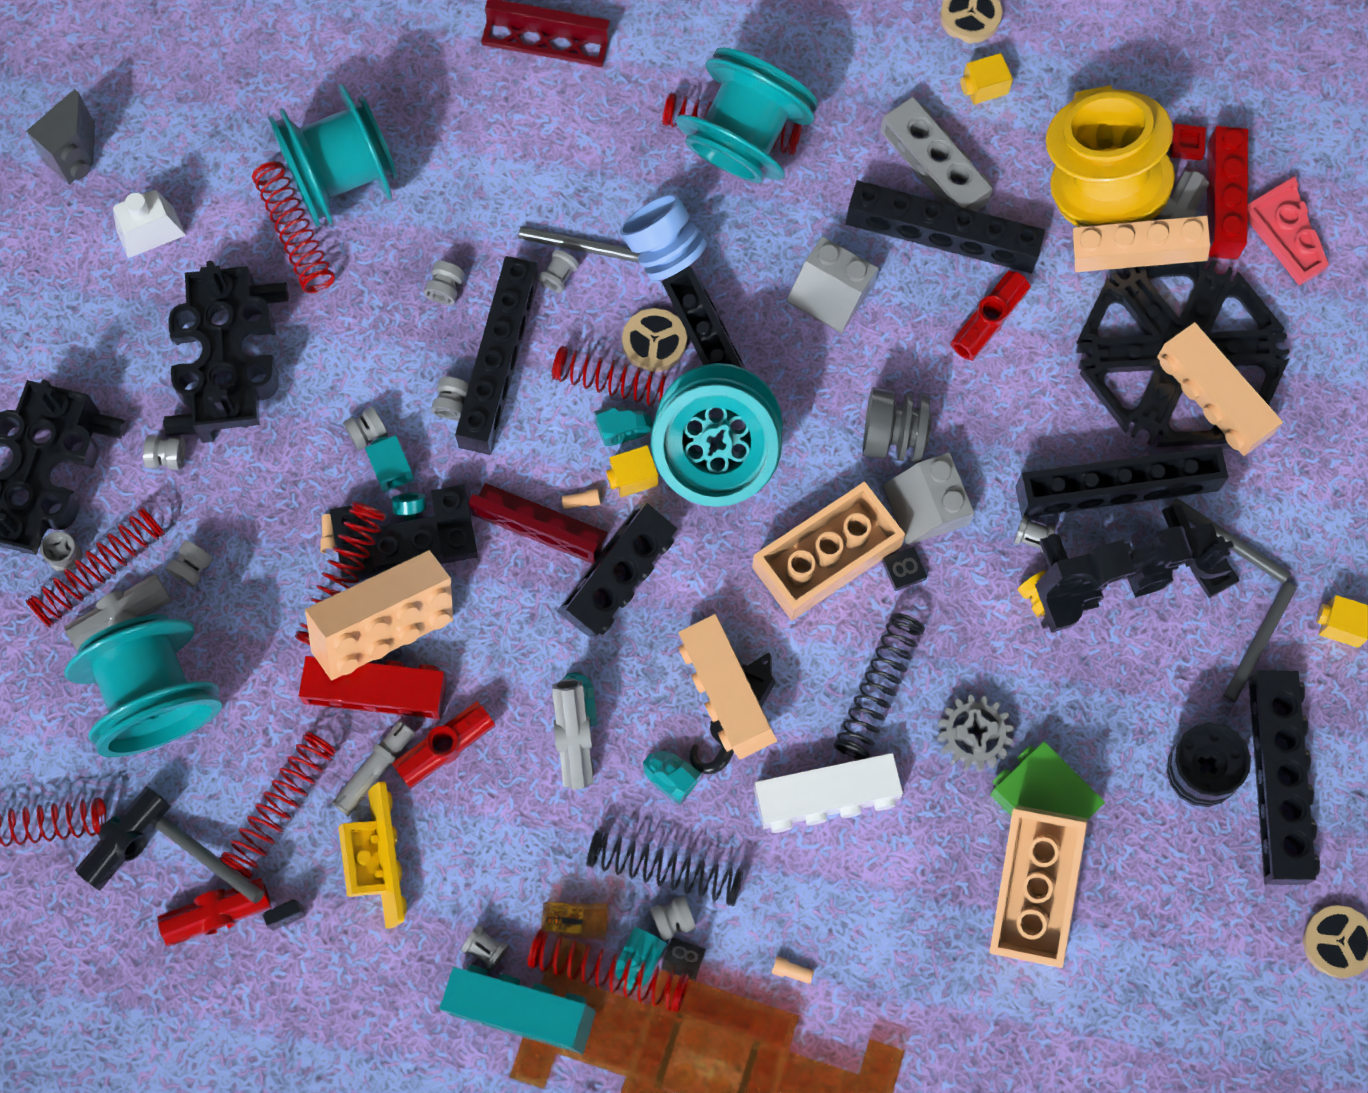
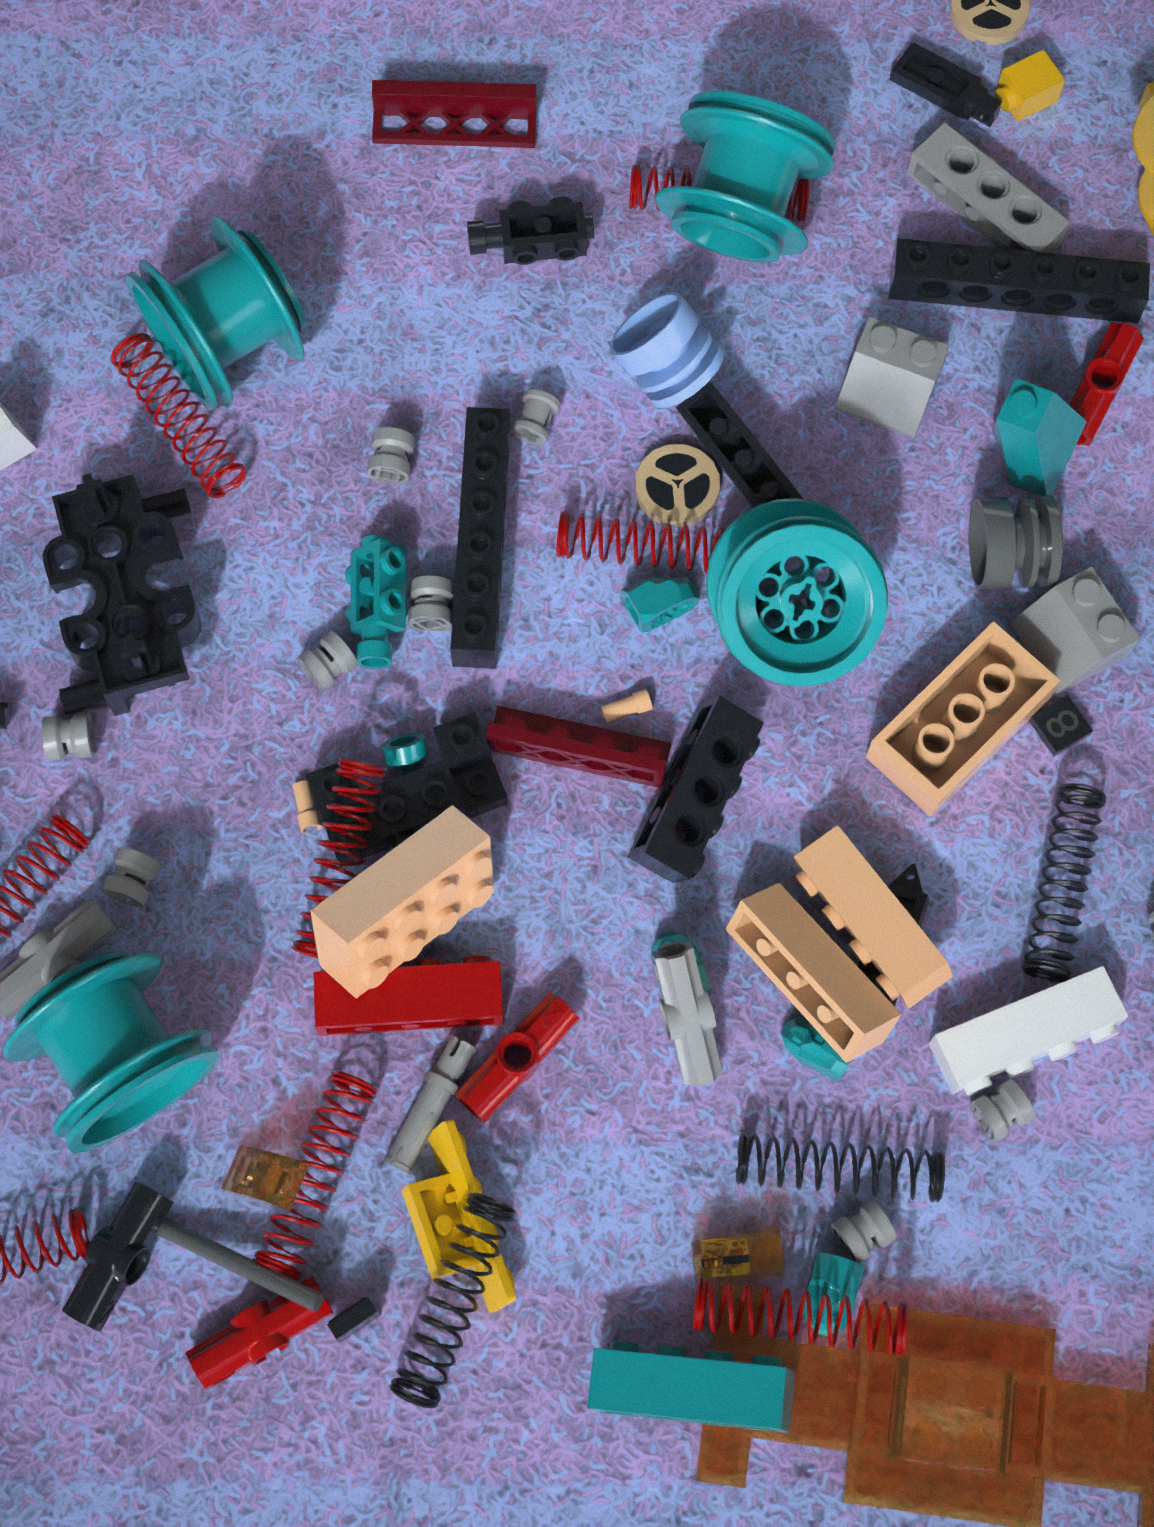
camera: 10 degrees left, 0 degrees up
(239, 799) = (265, 1177): none -> clear orange slope
(388, 847) = (492, 1211): none -> black piece
(389, 463) = (368, 701): teal brick -> none
(412, 387) = (377, 598): none -> teal brick
(473, 946) = (642, 1312): light grey bush -> none
(578, 244) = (555, 378): dark grey bar -> none
(586, 132) = (535, 232): none -> black brick
(632, 471) = (687, 659): yellow brick -> none
(673, 719) = (813, 972): none -> light nougat brick
(683, 958) = (889, 1281): black tile -> none
(785, 968) = (1022, 1270): light nougat piece -> none
(795, 847) = (1000, 1112): none -> light grey wheel
(922, 68) = (945, 85): none -> black hinge
(928, 348) = (1036, 437): none -> teal slope

